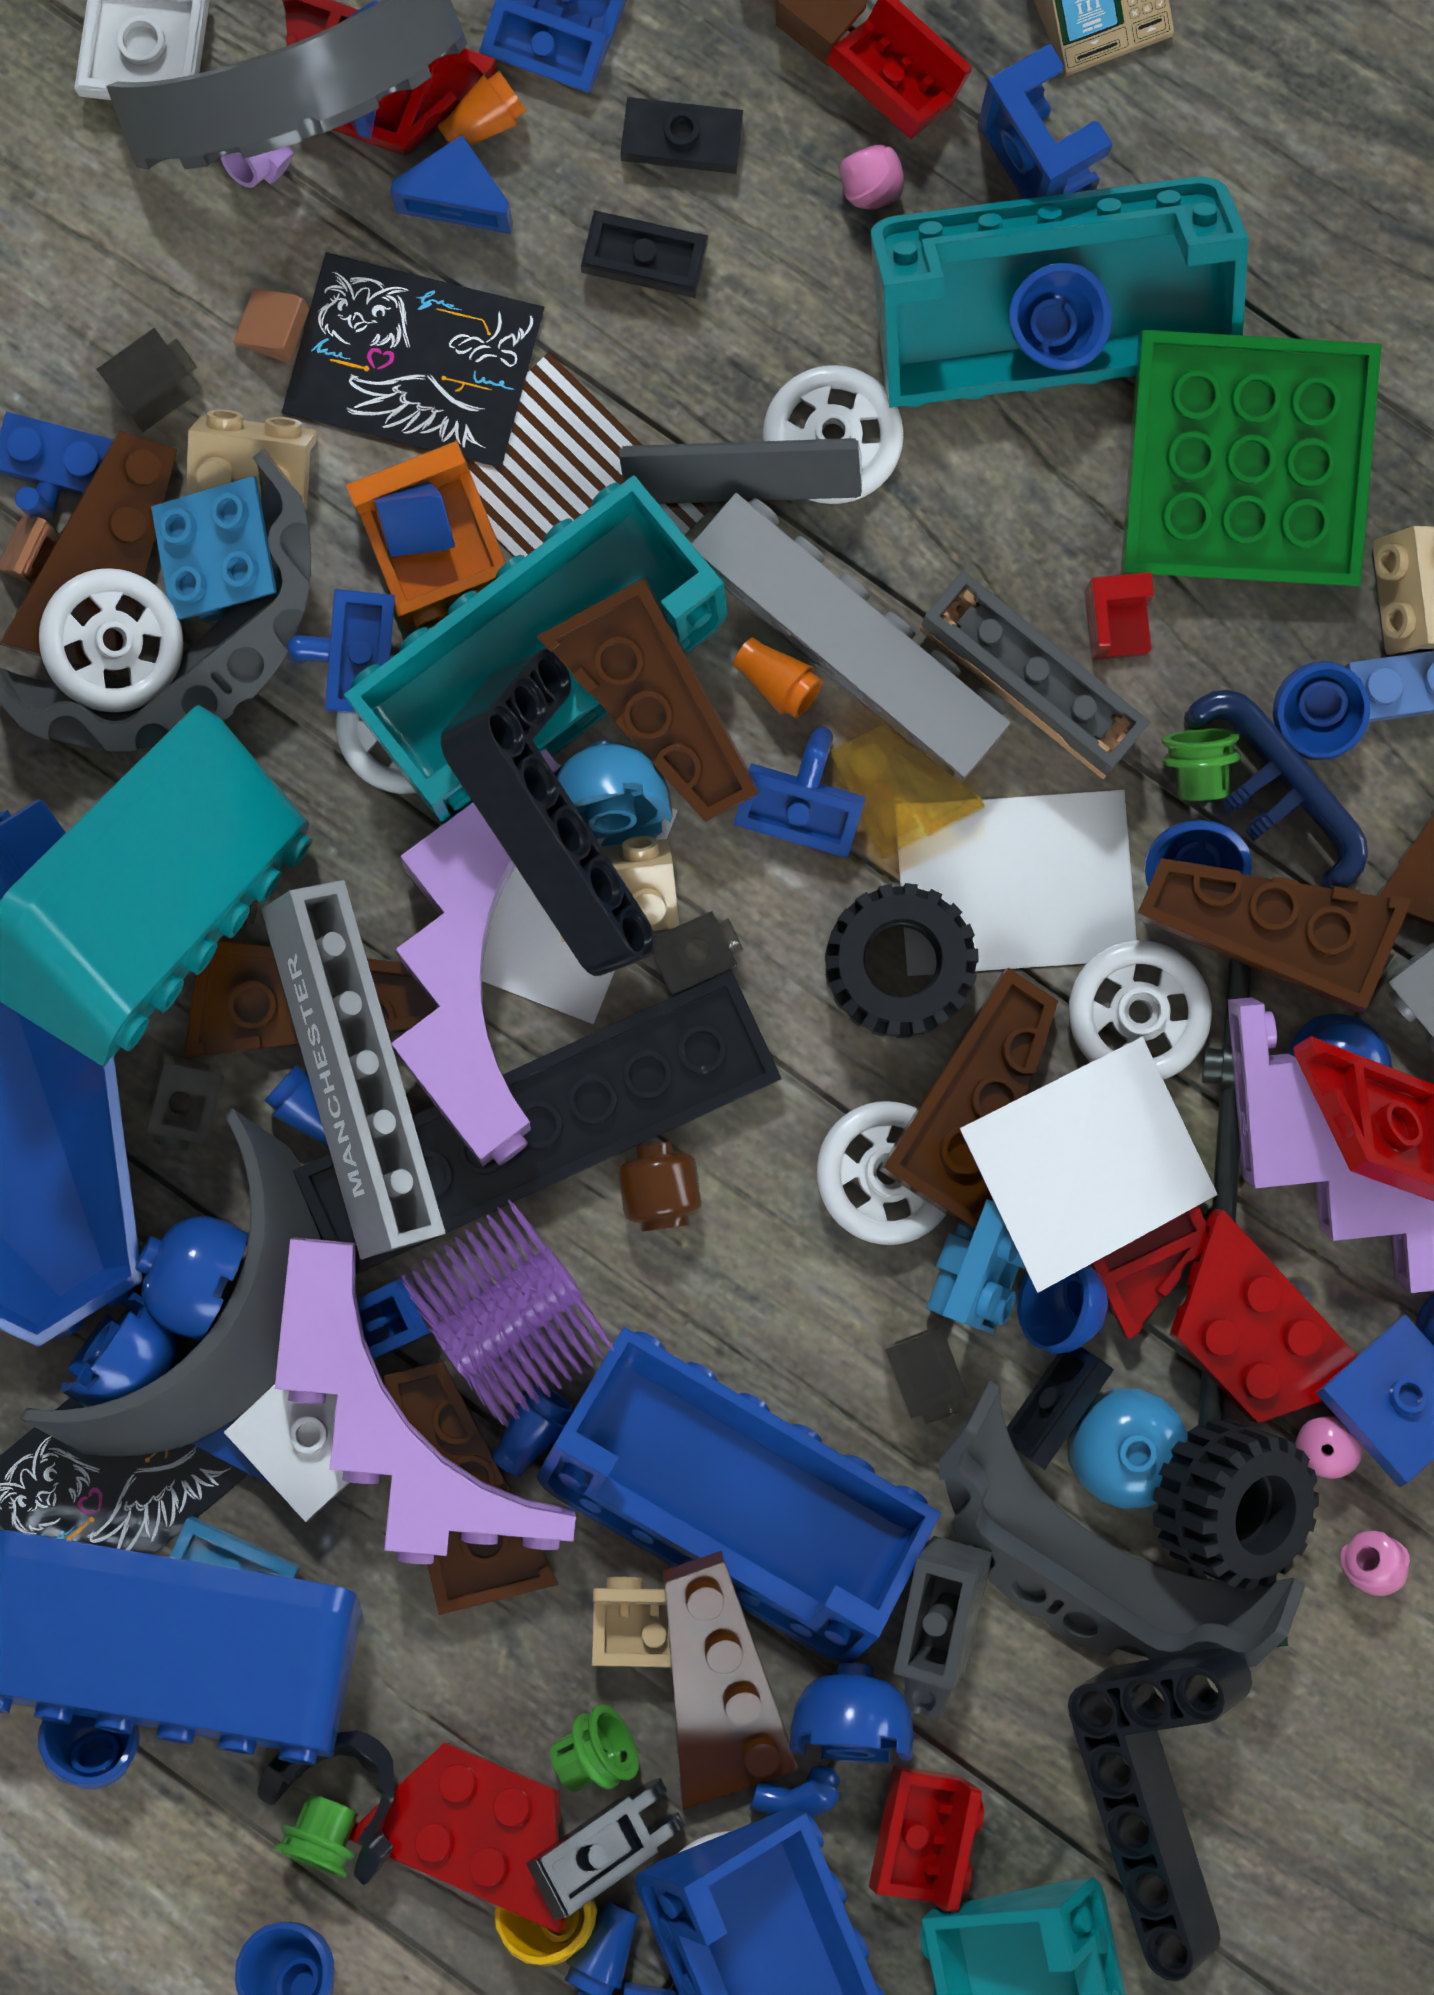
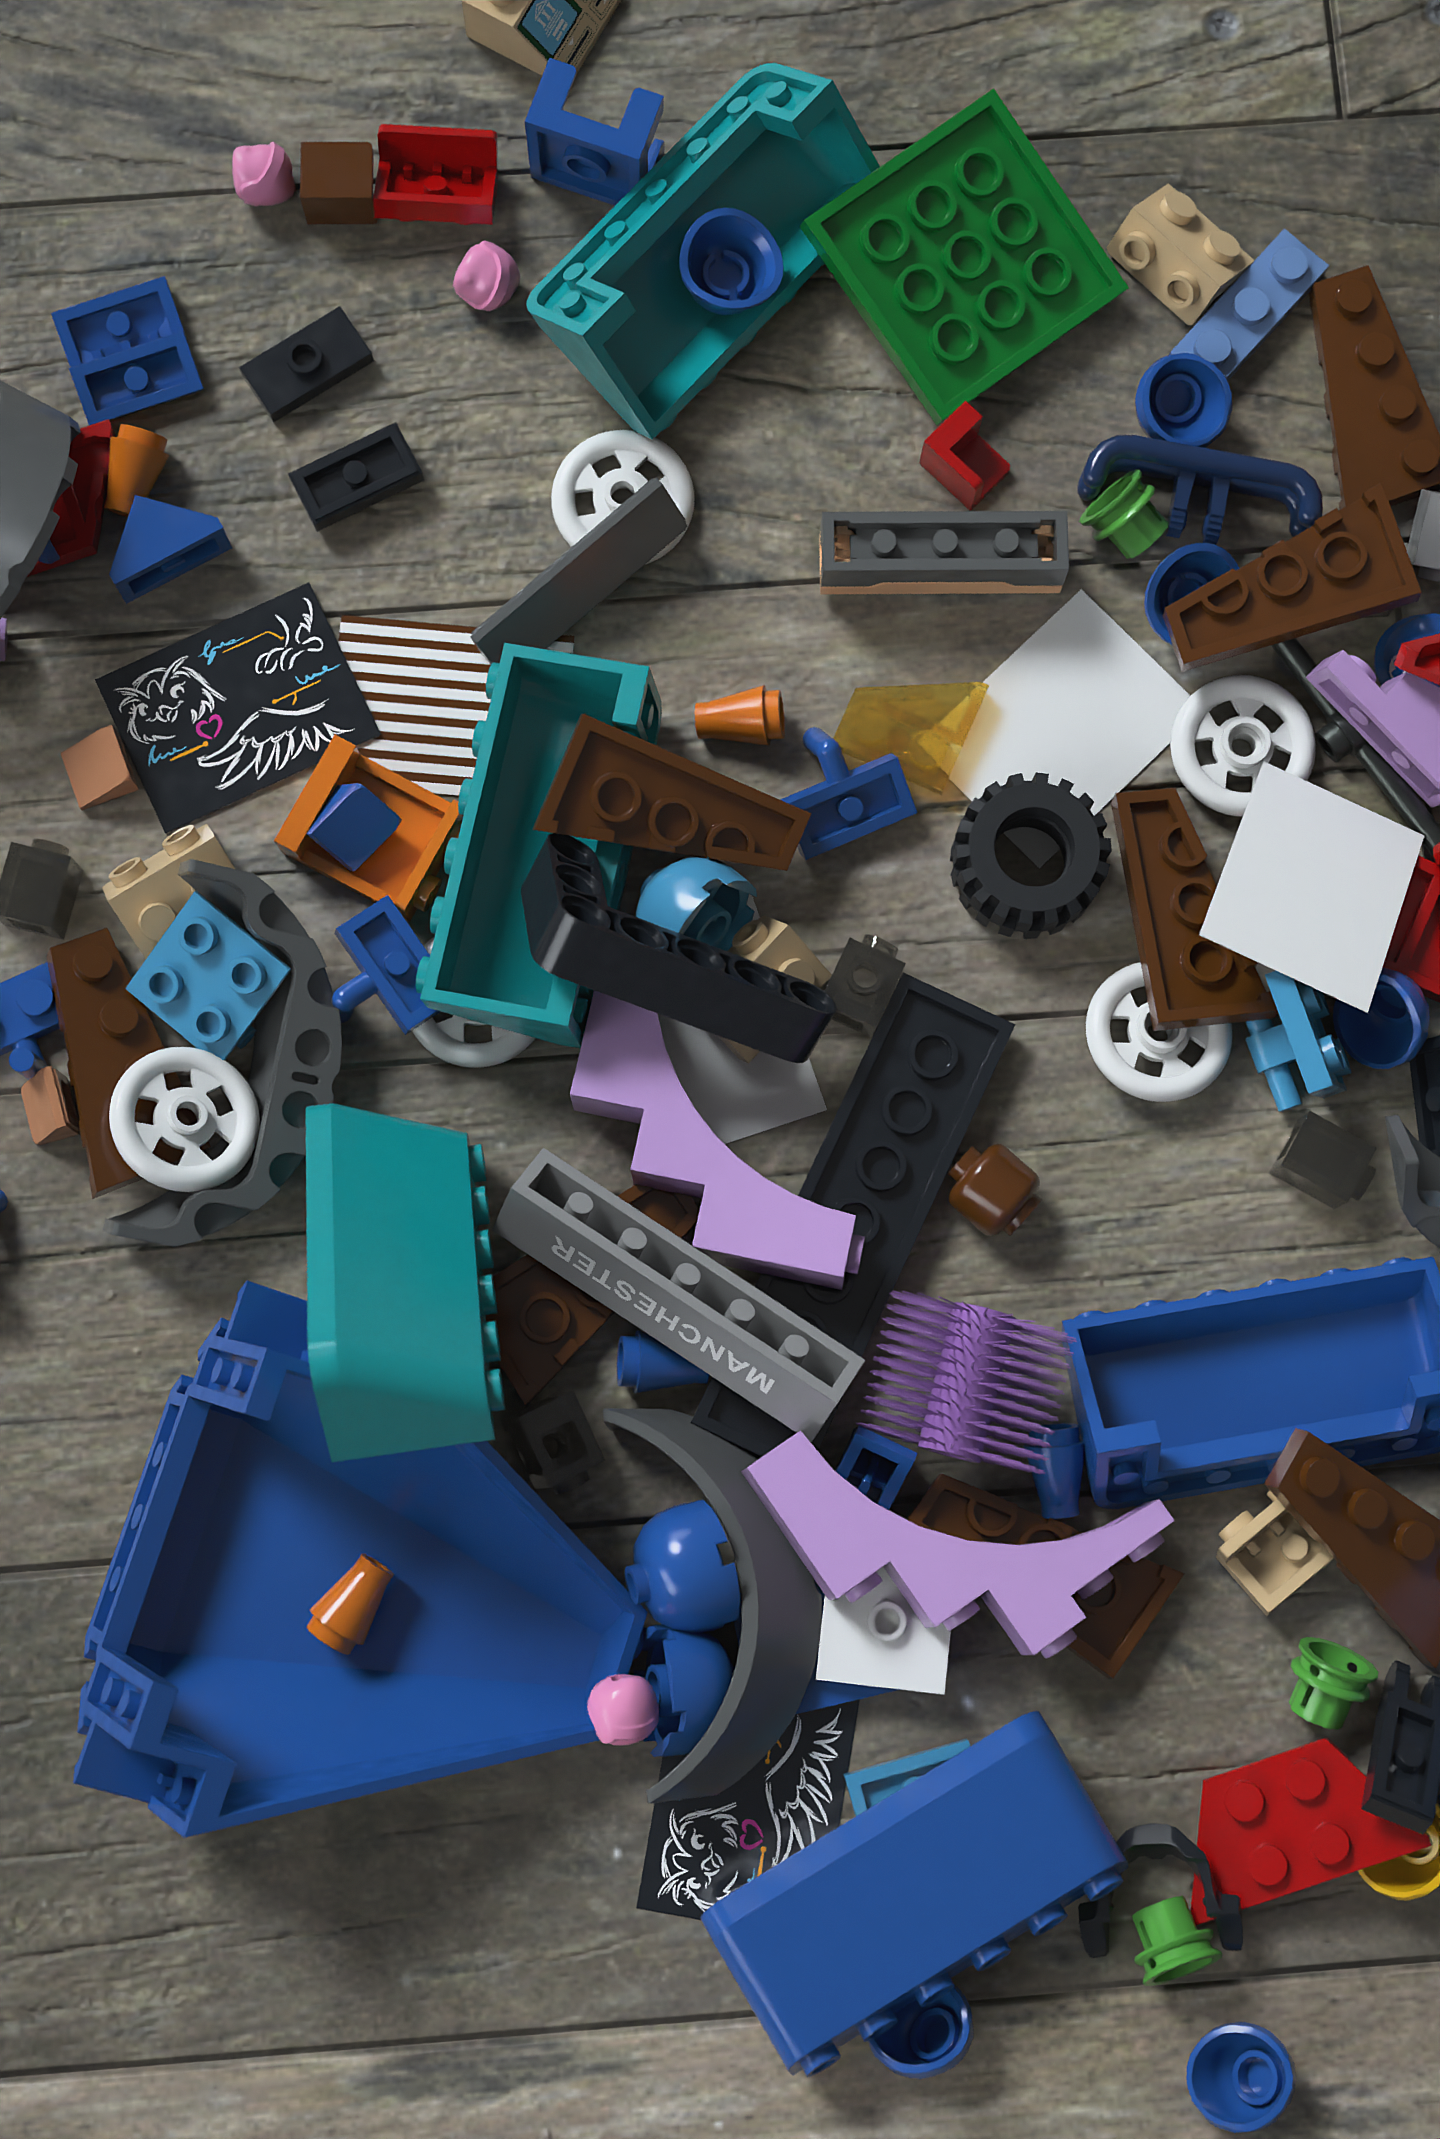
camera: 45 degrees left, 5 degrees down
(60, 1336) = (623, 1709): none -> bright pink piece
(850, 639) = (779, 641): light grey brick -> none

